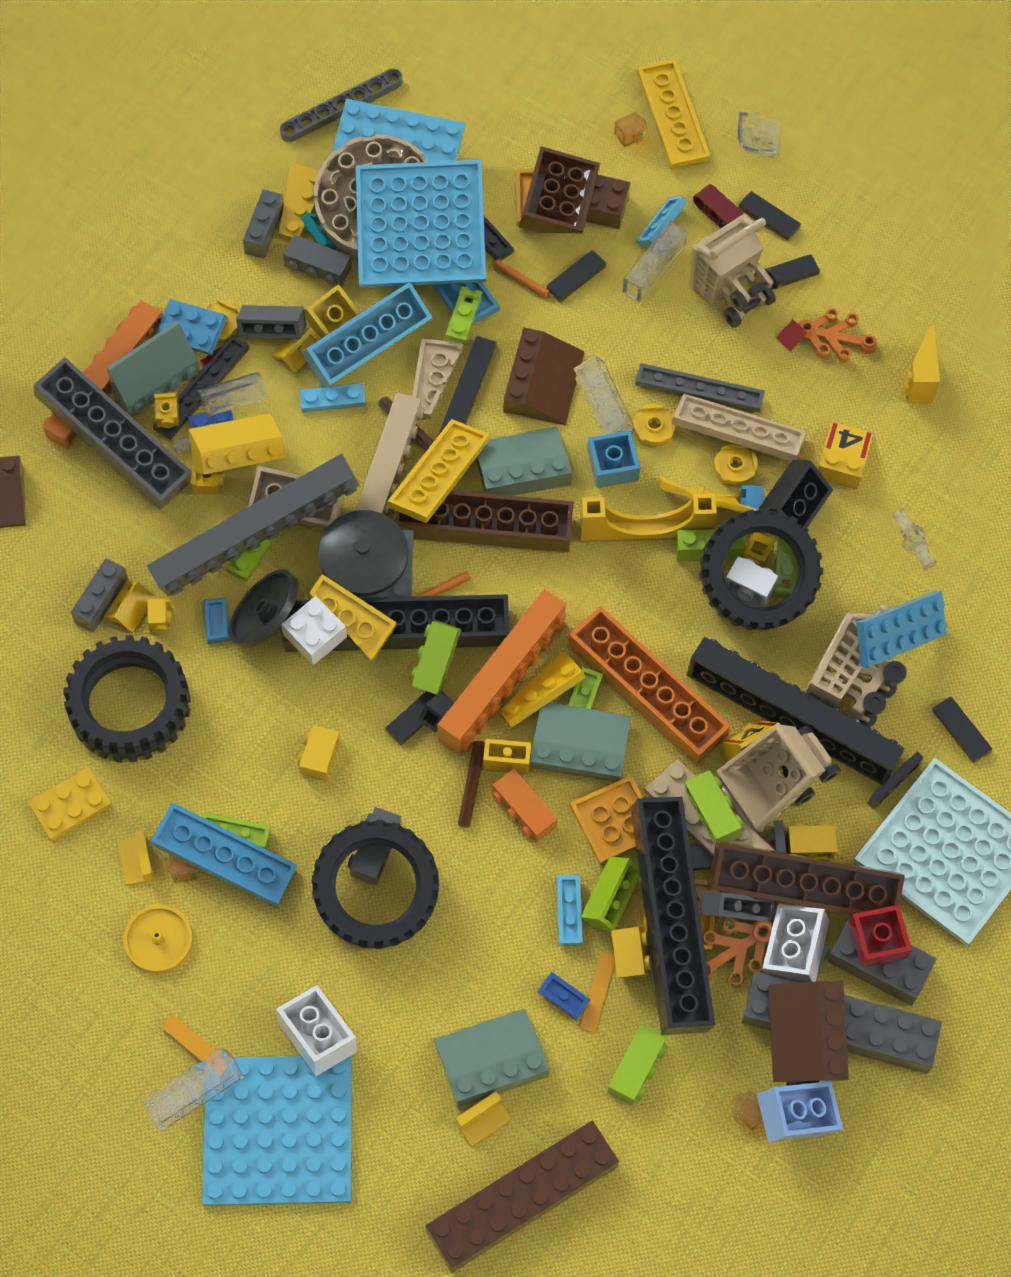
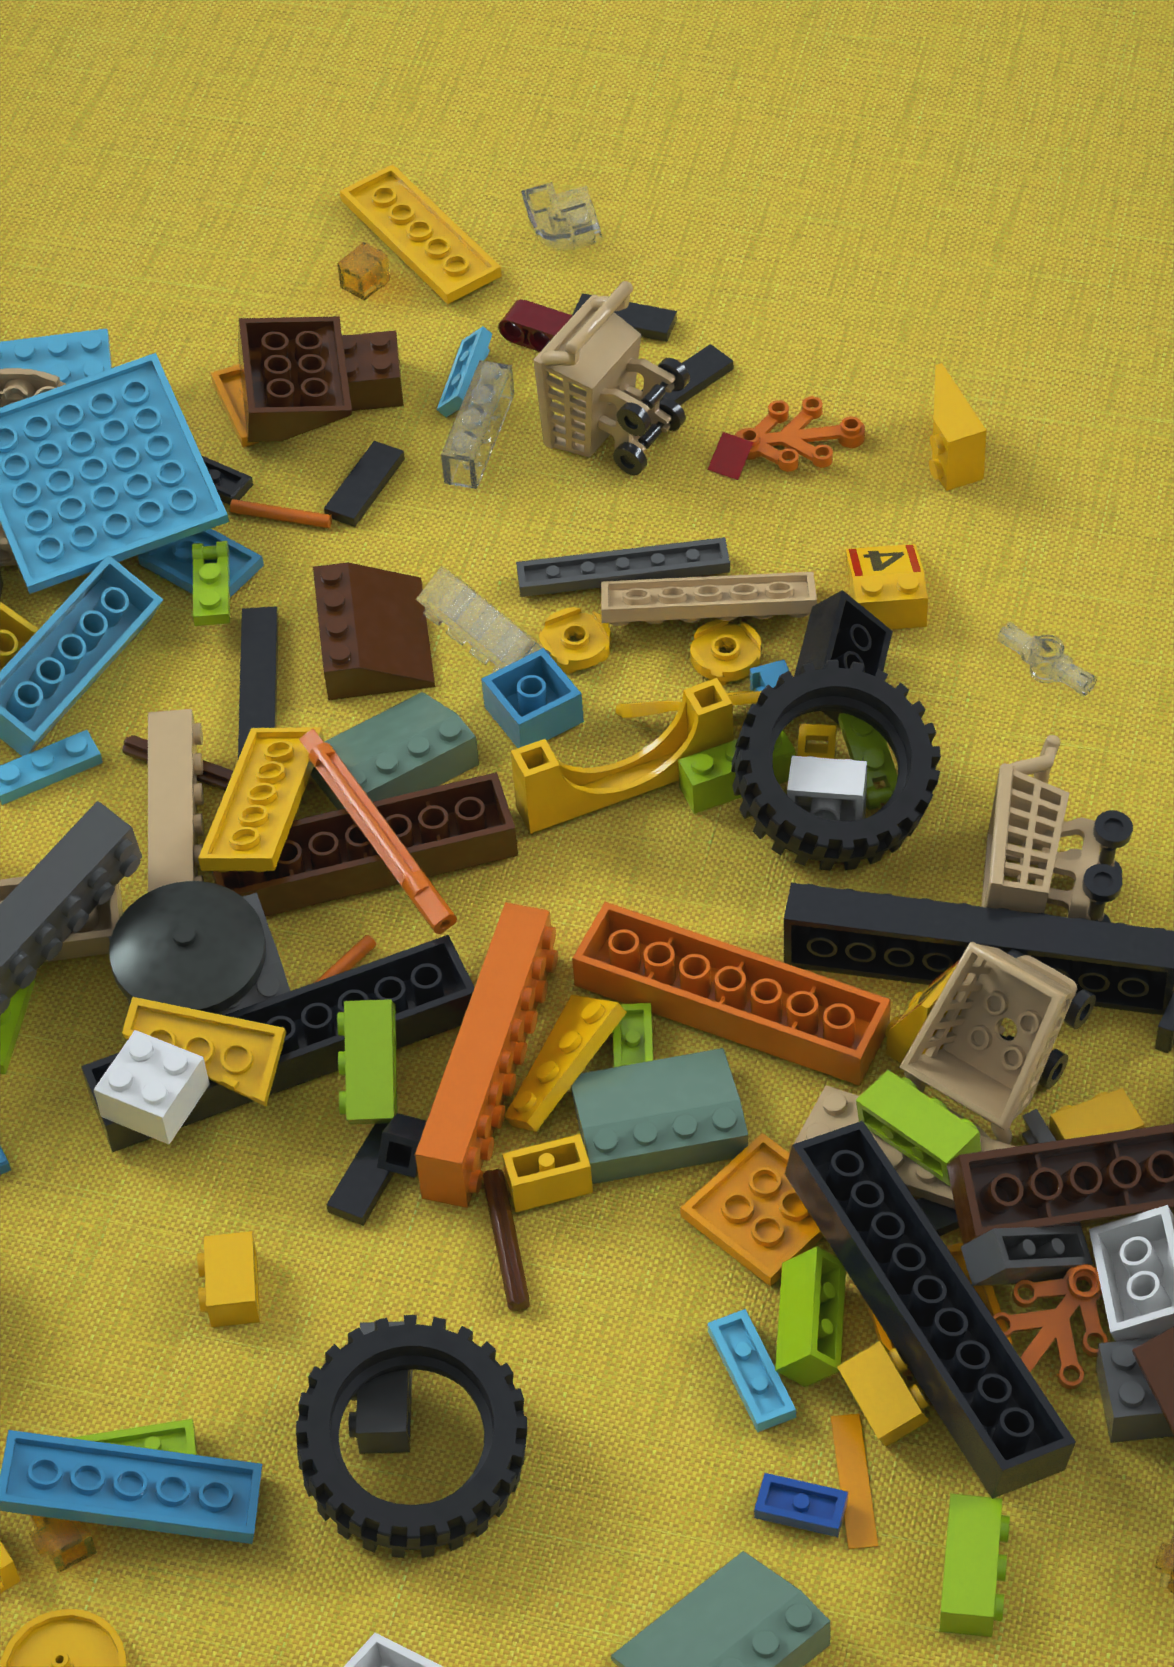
camera: 15 degrees left, 15 degrees down
(263, 608) = (52, 1088): pearl dark grey dish -> none
(433, 371) = (195, 673): tan wing -> none
(492, 517) = (379, 833): none -> orange piece
(524, 806) = (608, 1239): orange brick -> none
(901, 628) = (1092, 767): dark azure plate -> none

